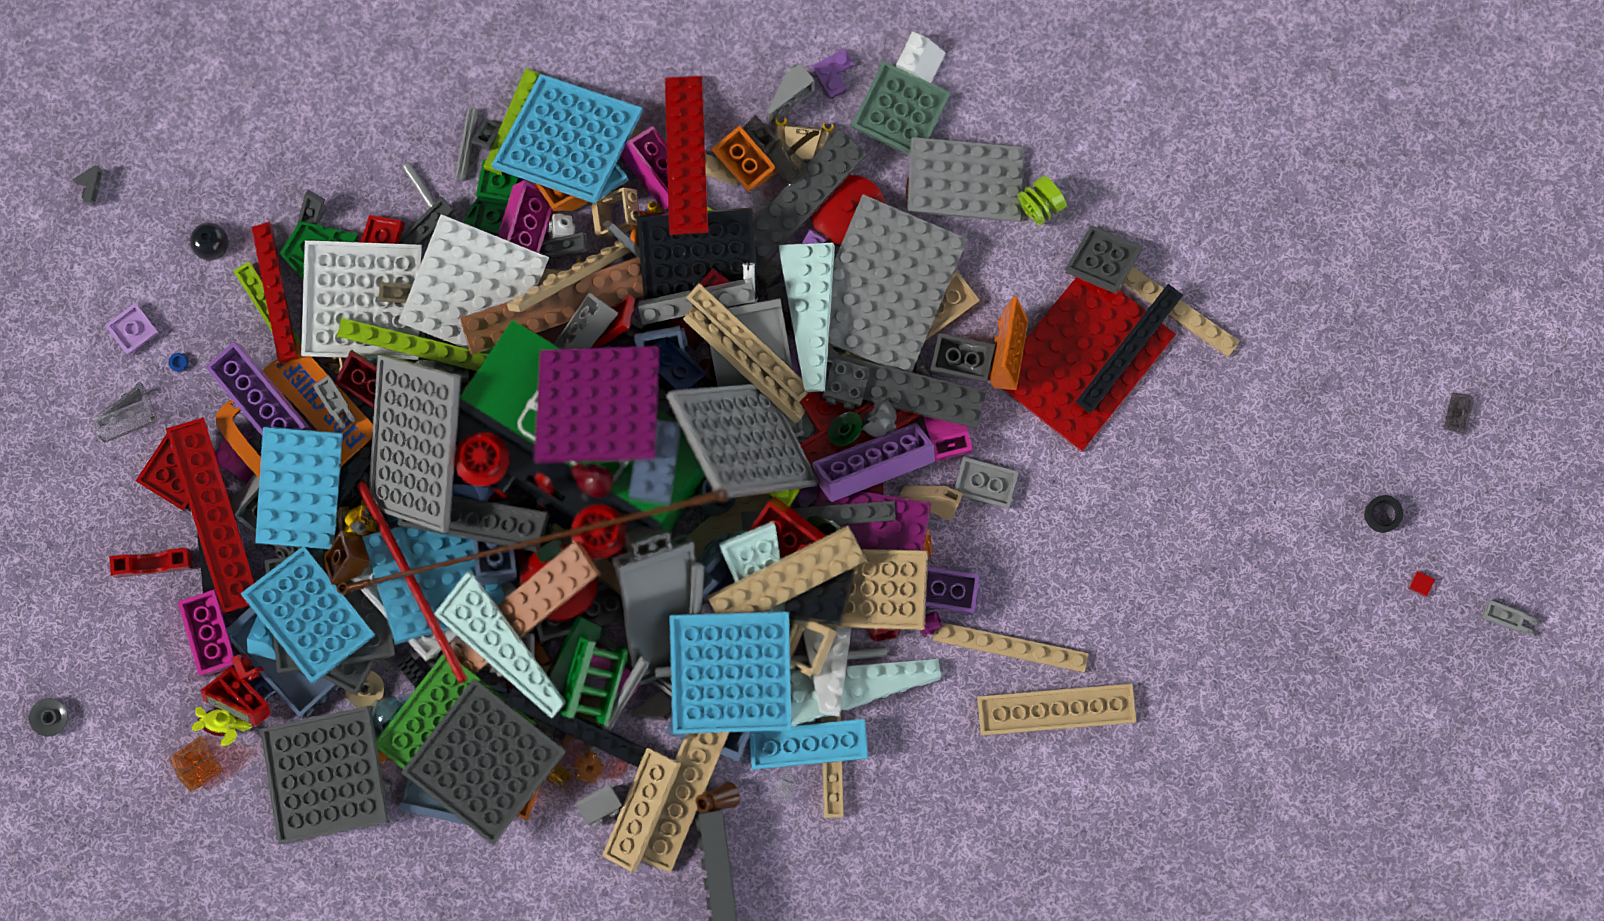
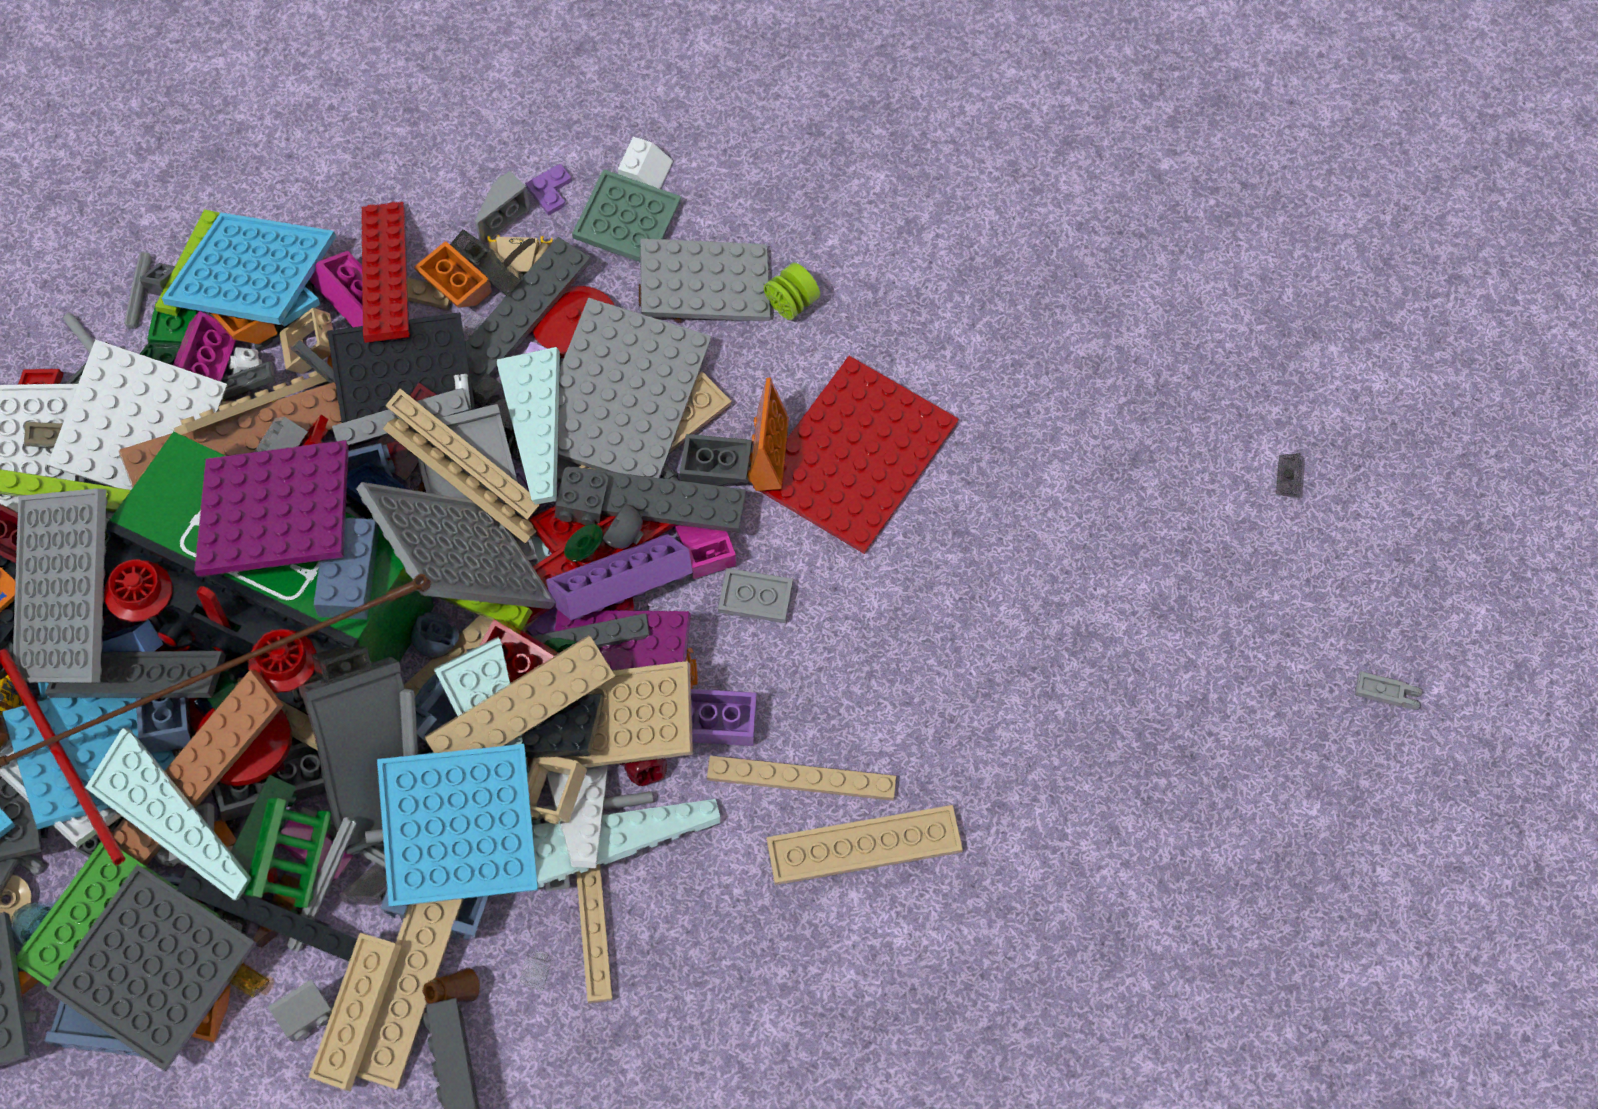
camera: 10 degrees left, 15 degrees down
(411, 670) = (62, 866): black tyre -> none
(588, 774) = (288, 976): clear orange brick -> none
(593, 478) = (270, 592): dark red piece -> none
(809, 744) = (562, 912): medium azure plate -> none
(932, 622) = (702, 755): magenta piece -> none
(943, 499) = (706, 617): tan slope -> none
(1103, 259) = (867, 345): dark grey plate -> none
(1129, 348) = (905, 435): black plate -> none
(1183, 314) = (950, 391): tan plate -> none
(1369, 513) = (1220, 604): black tyre -> none
(1421, 583) = (1278, 662): red tile -> none

